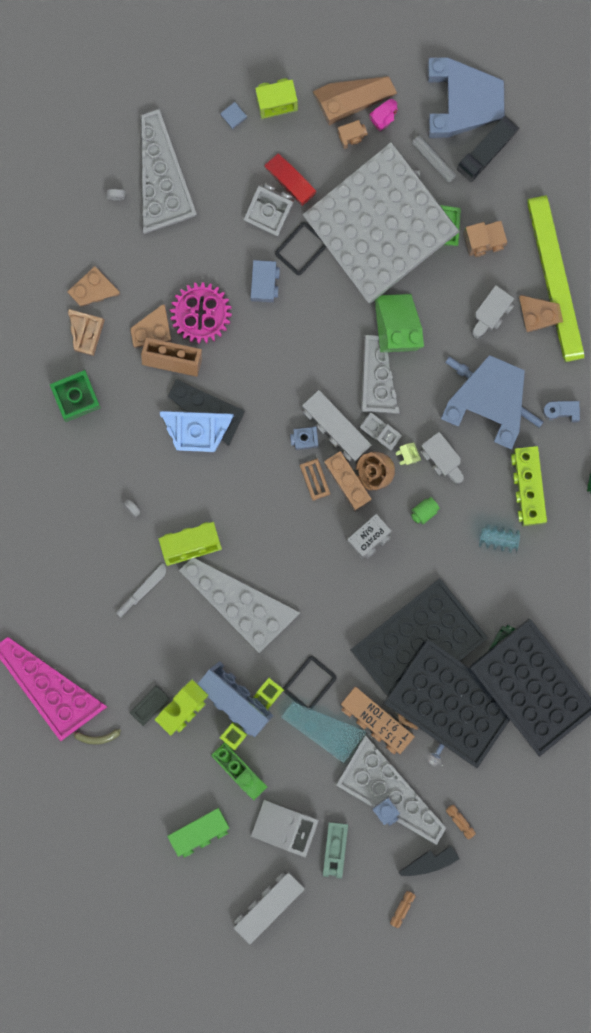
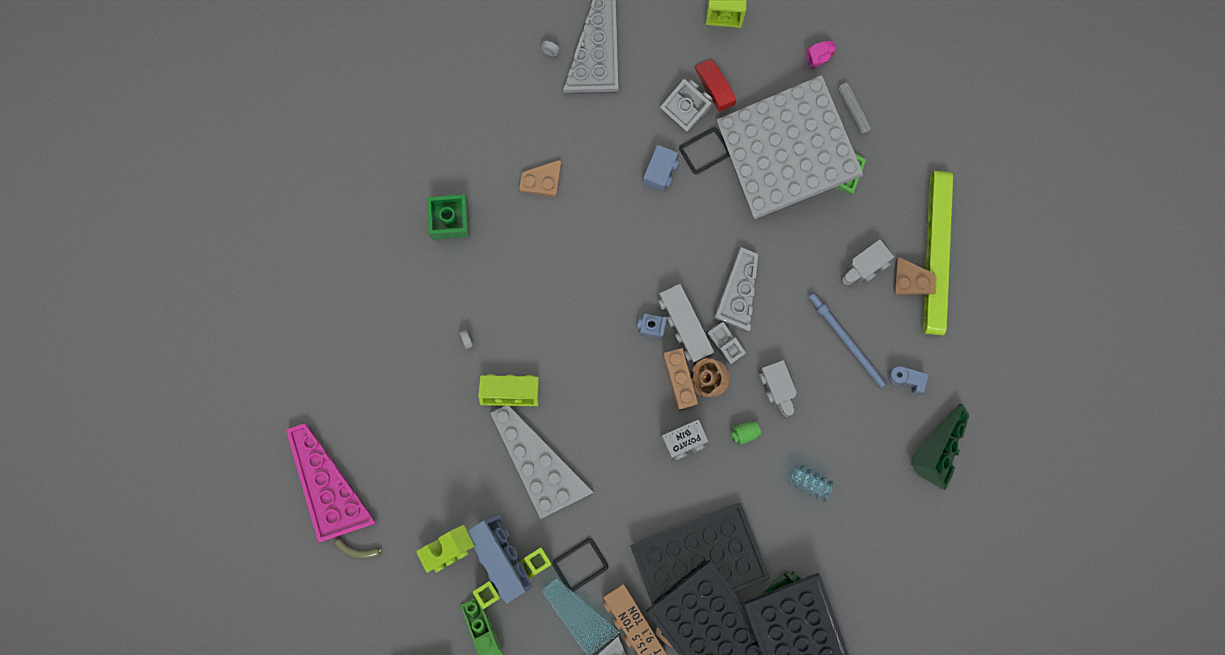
camera: 15 degrees right, 5 degrees down
(85, 331) = (479, 162): medium nougat wing -> none
(92, 288) = (499, 126): medium nougat wing -> none
(149, 705) = (417, 535): pearl dark grey tile -> none
(152, 580) = (460, 415): light grey piece -> none
(171, 357) = (551, 209): medium nougat brick -> none
(183, 312) = (577, 173): dark pink gear -> none
(195, 400) = (571, 273): black wing -> none
(196, 429) = (552, 285): light blue wing -> none
(233, 115) = (681, 13): sand blue tile -> none
(320, 494) = (656, 357): medium nougat tile -> none
(349, 97) = (790, 30): medium nougat wedge -> none
(351, 133) = (785, 61): medium nougat brick -> none
(398, 324) = (775, 247): bright green slope -> none
(409, 453) = (748, 372): yellowish green tile -> none
(472, 98) = (907, 64): sand blue wedge -> none
(484, 238) = (881, 193): medium nougat brick -> none
(487, 149) = (895, 120): black beam -> none
(492, 392) = (846, 339): sand blue wedge -> none
(530, 486) = (855, 441): lime brick -> none

